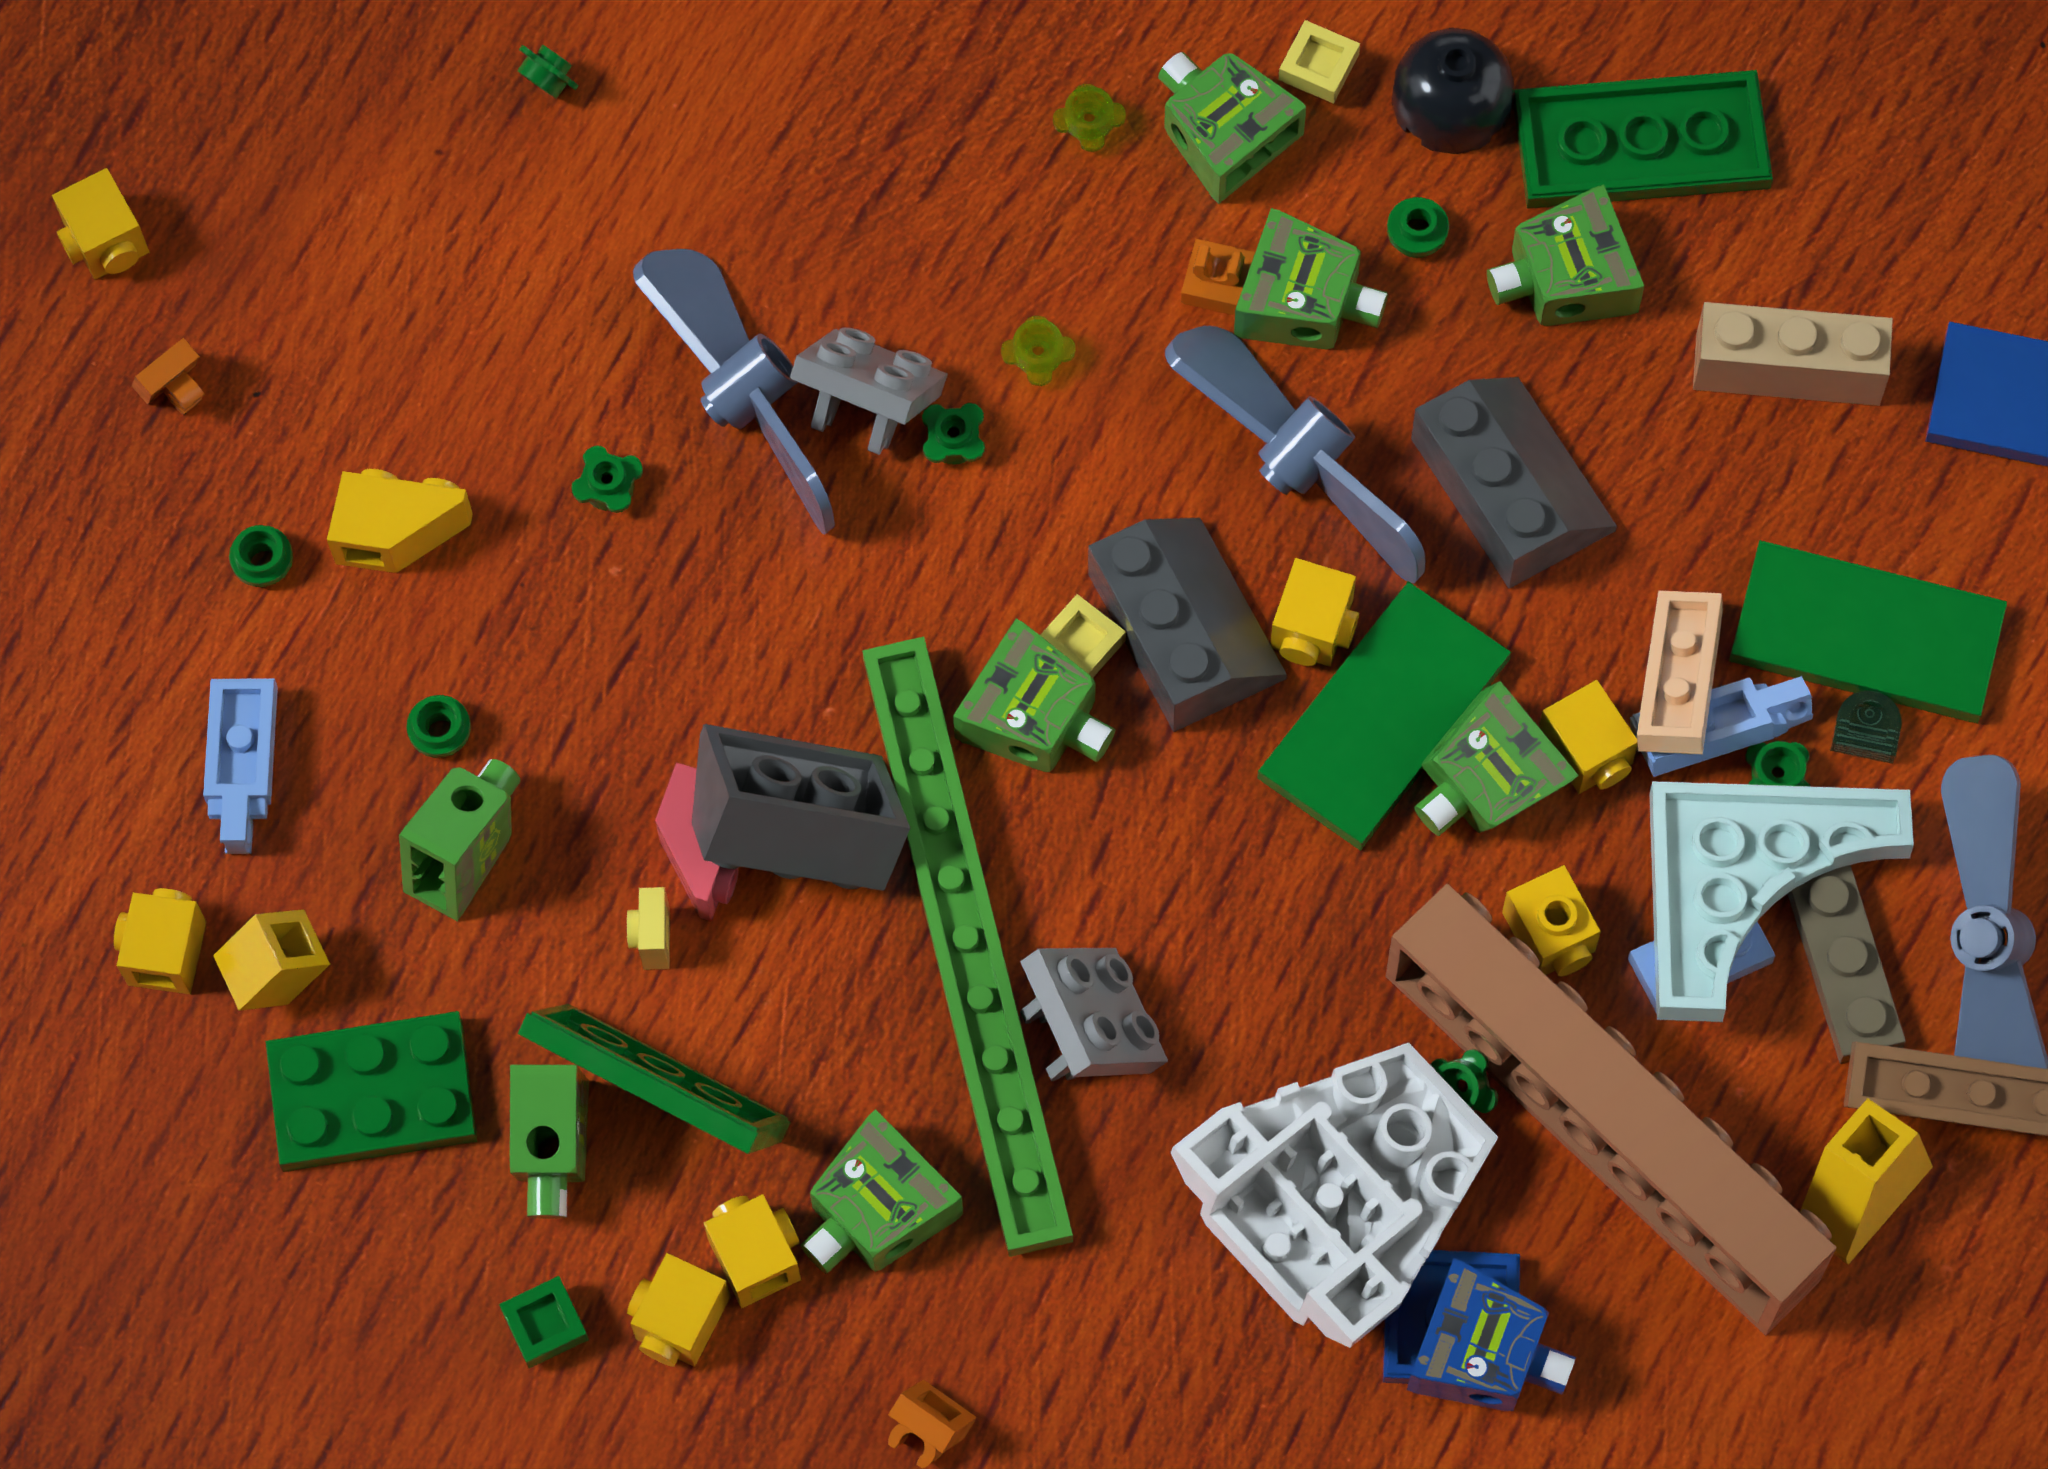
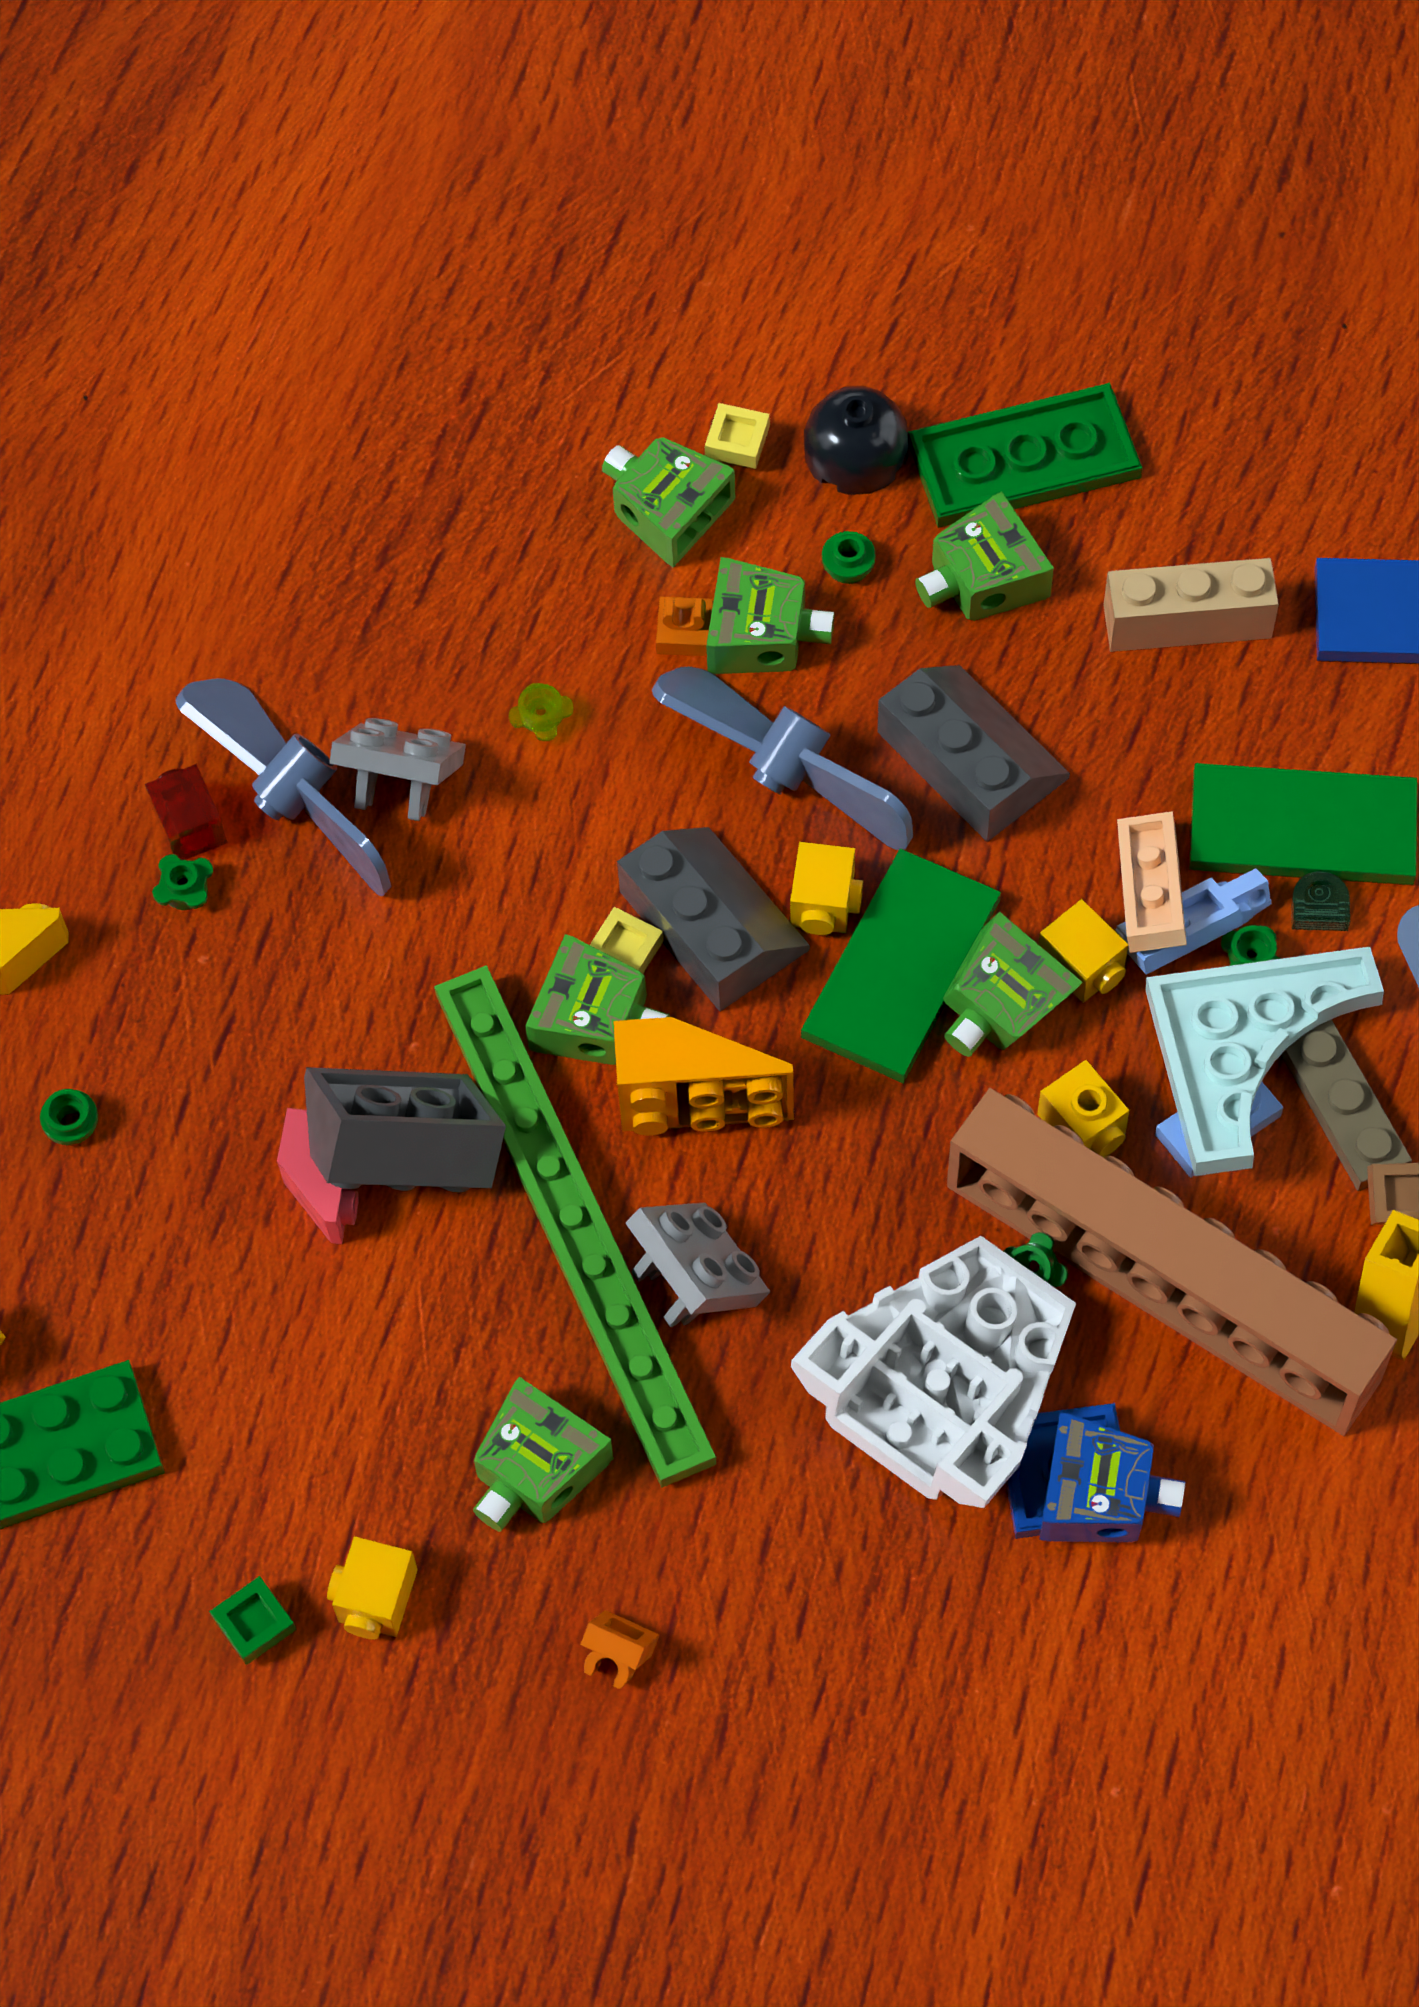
camera: 10 degrees left, 5 degrees down
(458, 837) = (102, 1208): bright green torso -> none
(543, 1106) = (221, 1428): bright green torso -> none
(546, 70) = (70, 550): green plate -> none
(623, 400) = (186, 812): none -> clear red brick
(650, 928) = (288, 1257): light yellow plate -> none
(655, 1077) = (316, 1383): green tile -> none
(753, 1247) = (431, 1520): yellow brick -> none
(958, 449) = (482, 806): green plate -> none
(1089, 100) = (545, 500): clear neon green plate -> none
(1121, 807) = (695, 1079): none -> light orange slope

